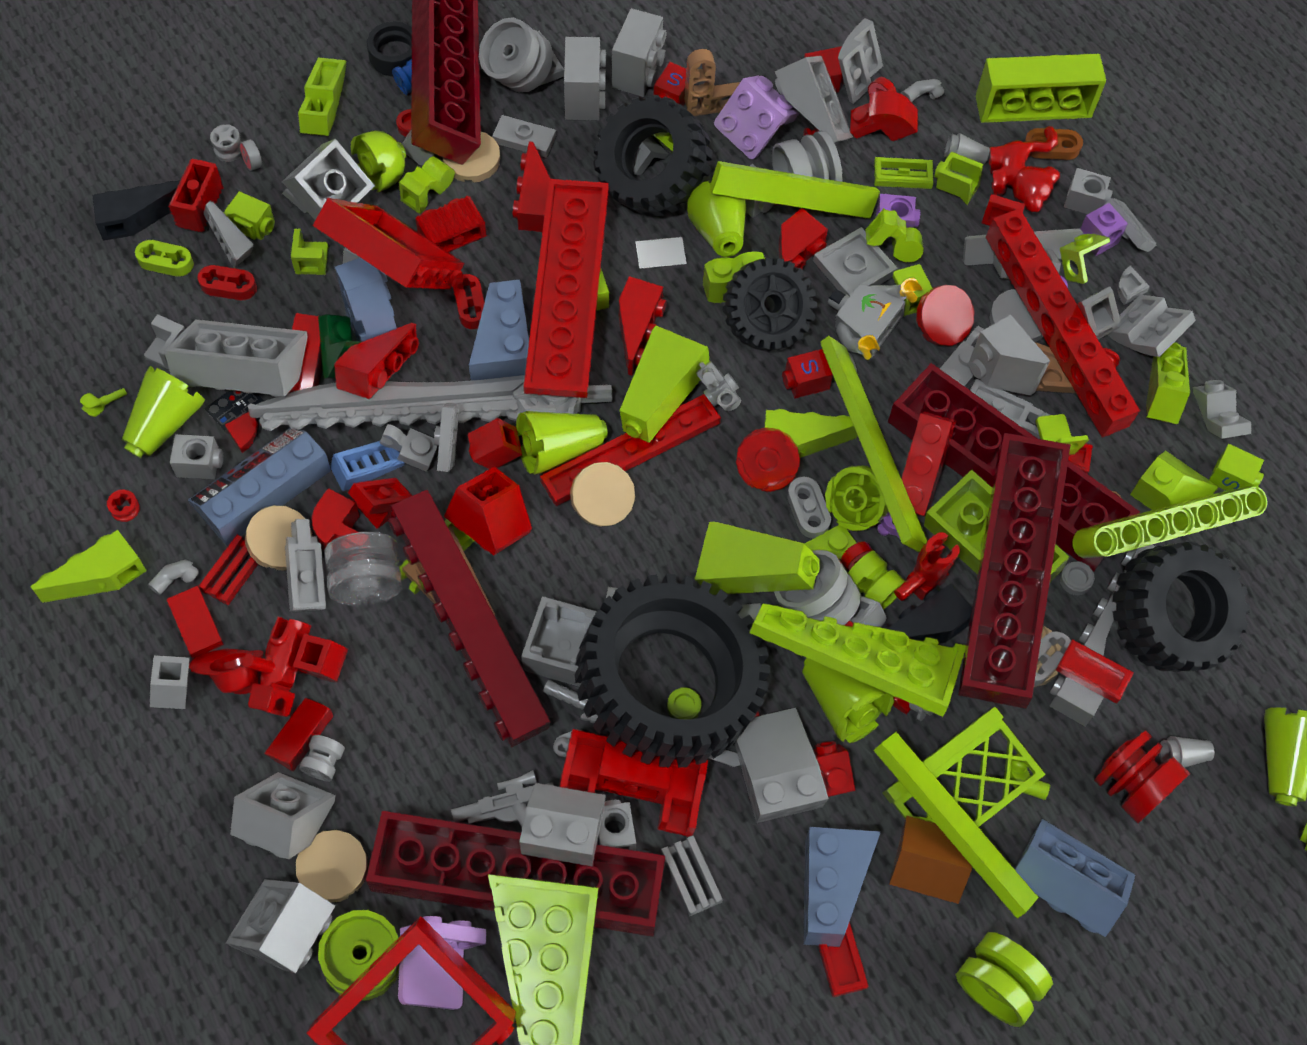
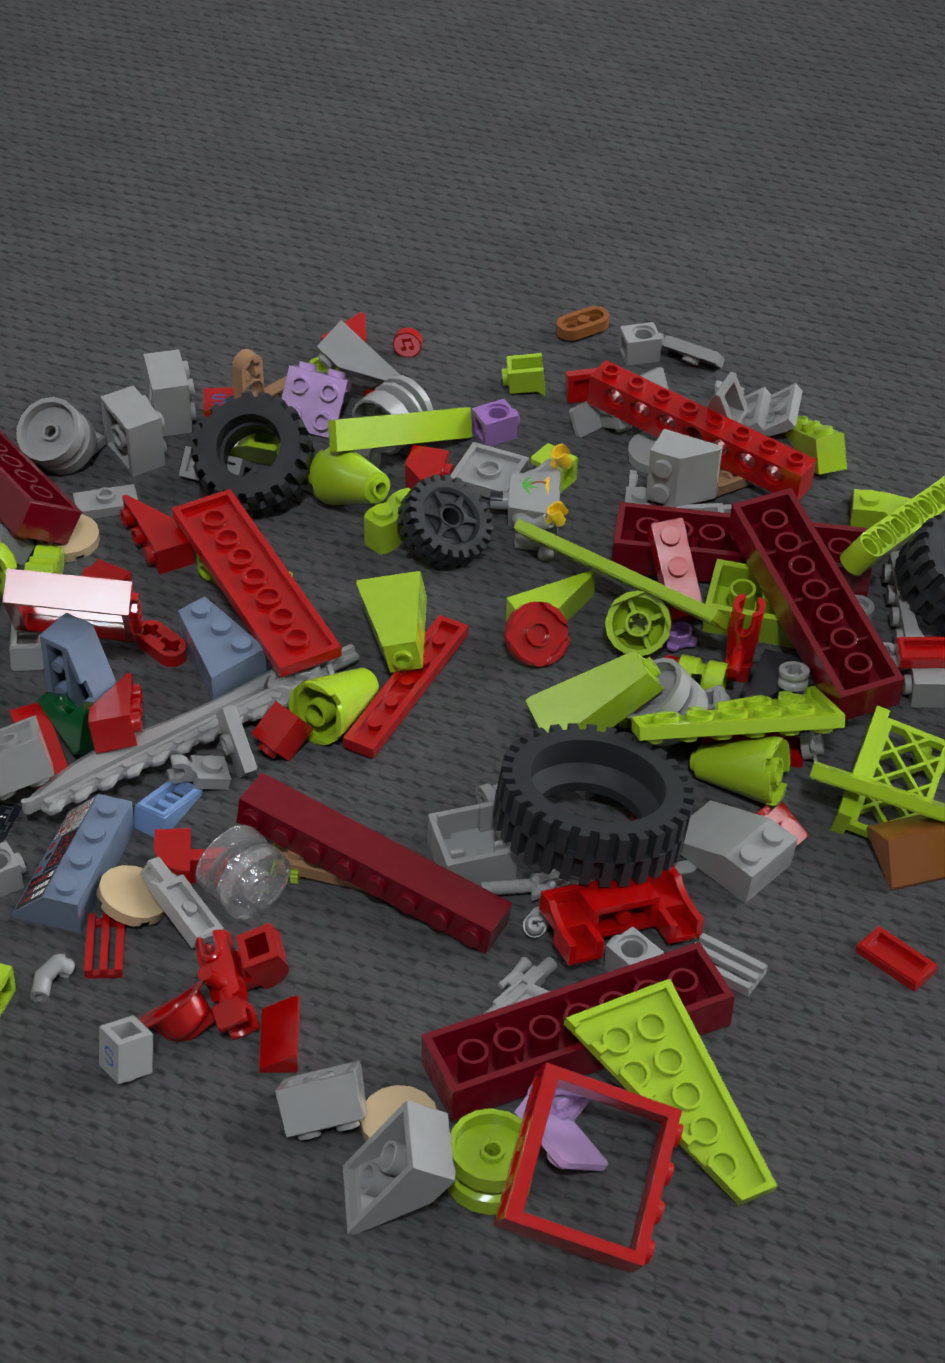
camera: 30 degrees left, 20 degrees down
(195, 622) = (100, 1000): red tile -> none
(243, 431) = (22, 835): red tile -> none
(322, 758) = (321, 1040): light grey wheel -> none
(376, 497) = (206, 823): red slope -> none
(490, 511) = (324, 776): red slope -> none
(562, 824) = (598, 959): light grey slope -> none
(602, 494) = (412, 725): tan tile -> none
(638, 309) = (328, 588): red slope -> none
(660, 252) = (306, 537): white sticker -> none
(720, 388) = (449, 600): light grey piece -> none
(807, 374) = (516, 563): red brick -> none
(808, 509) = (591, 651): light grey plate -> none
(833, 879) = (848, 901): sand blue wedge -> none
(860, 59) = (373, 320): light grey slope -> none
(885, 111) = (426, 351): red brick -> none
(903, 176) = (474, 396): lime tile -> none
(906, 240) = (516, 435): lime leg -> none
(918, 88) = (438, 327): light grey arm -> none
(945, 315) = (598, 472): tile -> none
(950, 621) = (793, 676): none -> light grey bush
(966, 147) = (506, 349): light grey cone -> none
(1030, 183) = (560, 347): red animal -> none
(1040, 87) = (542, 284): lime brick -> none
(1075, 251) = (671, 376): lime bracket -> none
(1105, 222) = (677, 361): medium lavender brick -> none
(1218, 410) = (870, 448): light grey slope -> none
(1237, 469) = (916, 476): lime brick -> none

